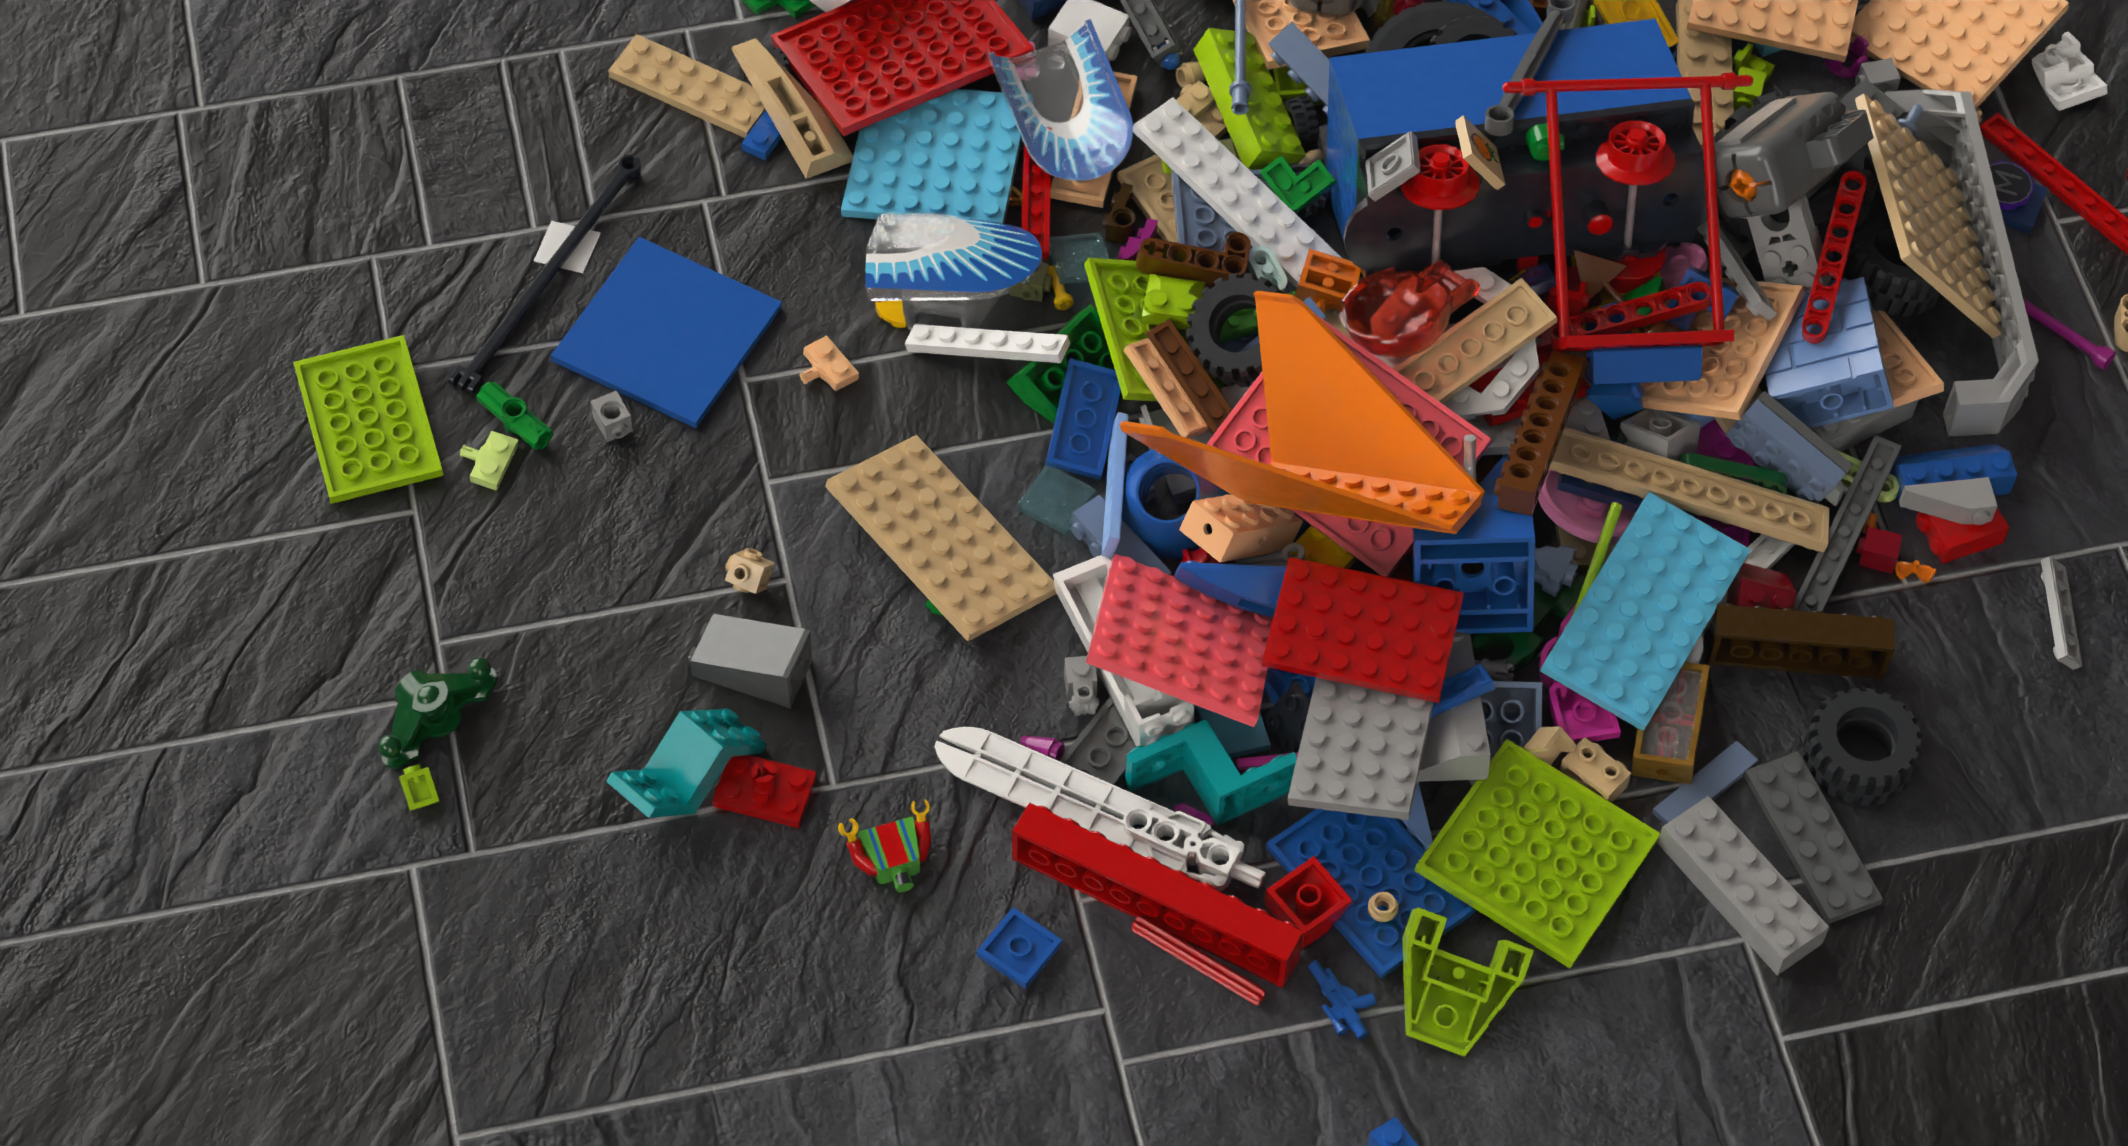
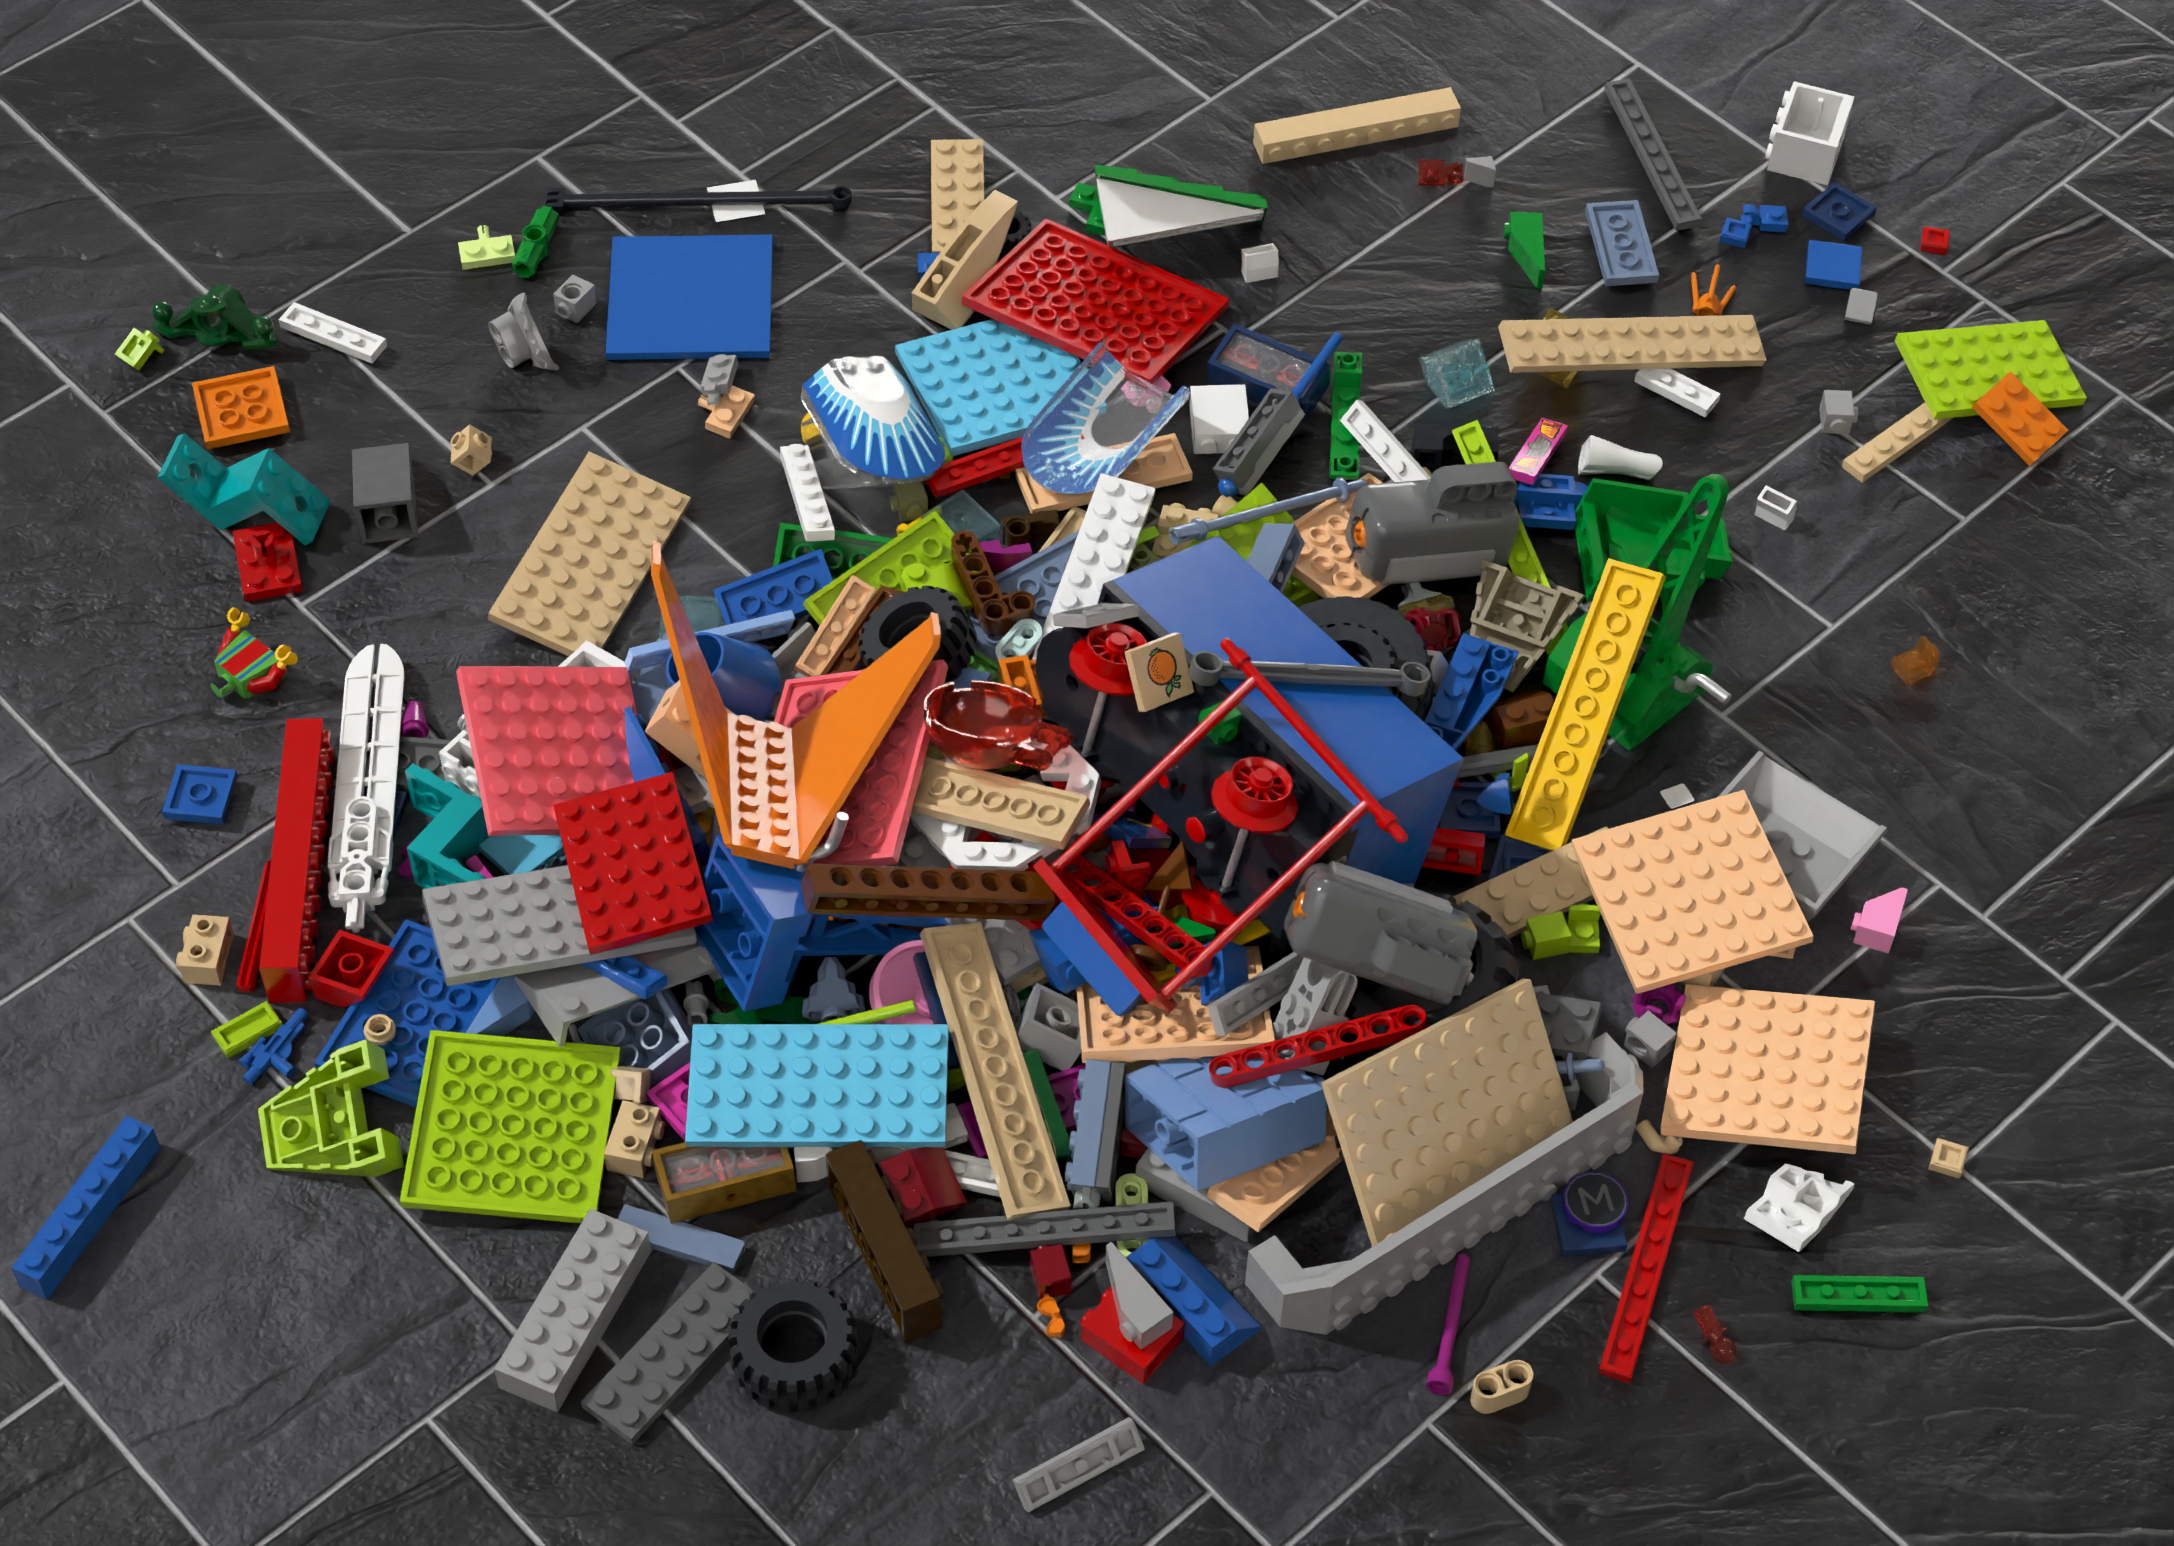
camera: 60 degrees right, 5 degrees down
(368, 419) = (475, 161): lime plate -> none
(512, 622) = (333, 332): none -> white plate
(556, 734) = (240, 407): none -> orange plate
(637, 477) = (514, 336): none -> light grey piece
(792, 351) = (718, 377): none -> light grey plate
(1205, 1009) = (205, 950): none -> tan brick
(1306, 1014) = (246, 1029): none -> lime tile
(1679, 260) = (1265, 953): bright pink tile -> none

